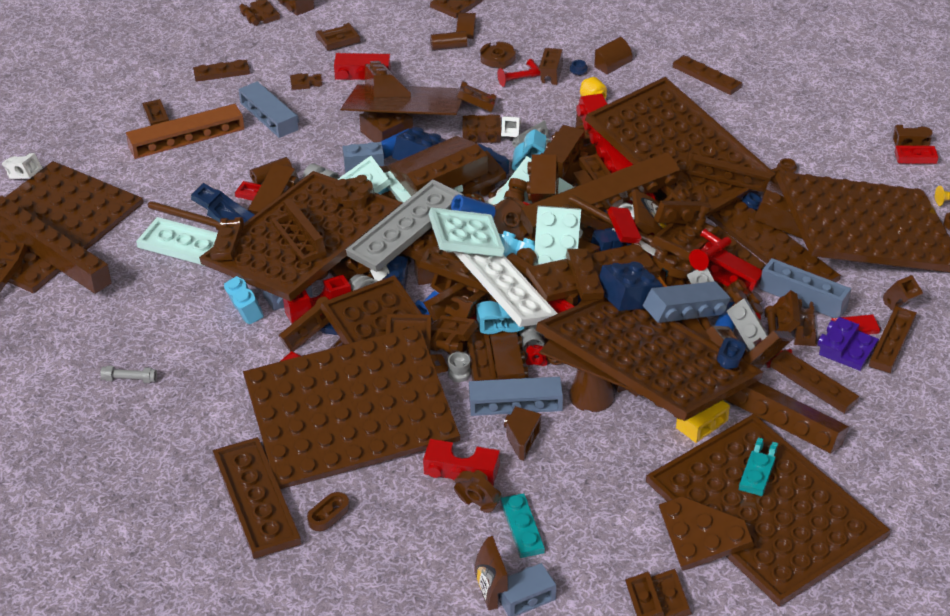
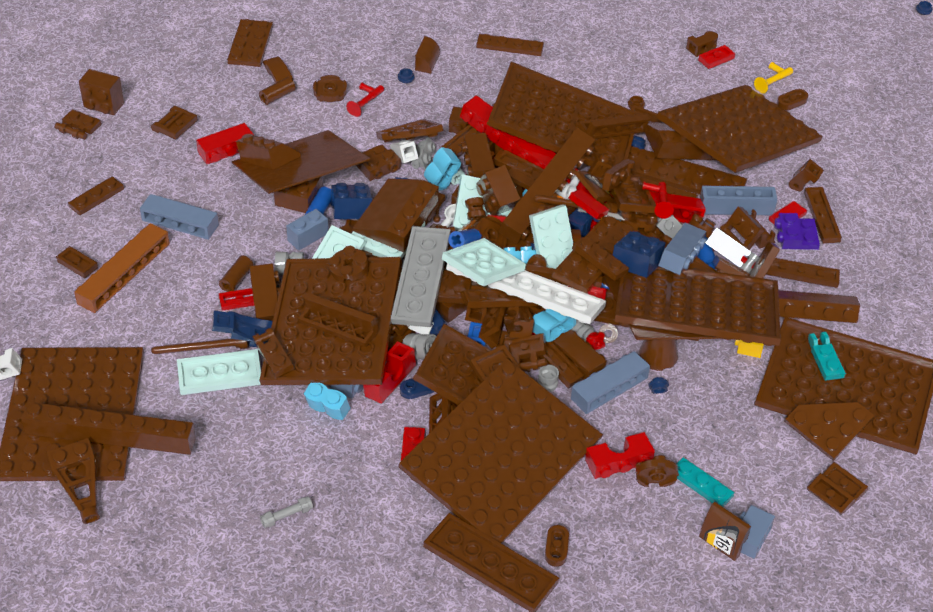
camera: 35 degrees left, 5 degrees up
(304, 81) = (182, 178): reddish brown plate -> none
(304, 327) = (402, 398): reddish brown plate -> none
(476, 97) = (352, 135): reddish brown plate -> none
(522, 430) = (640, 408): reddish brown slope -> none
(531, 111) = (410, 130): none -> reddish brown plate
(551, 64) = (386, 81): reddish brown hinge -> none
(561, 420) = (658, 385): none -> dark blue plate
(593, 86) = (438, 92): yellow head -> none
(731, 353) = (752, 276): dark blue plate -> none

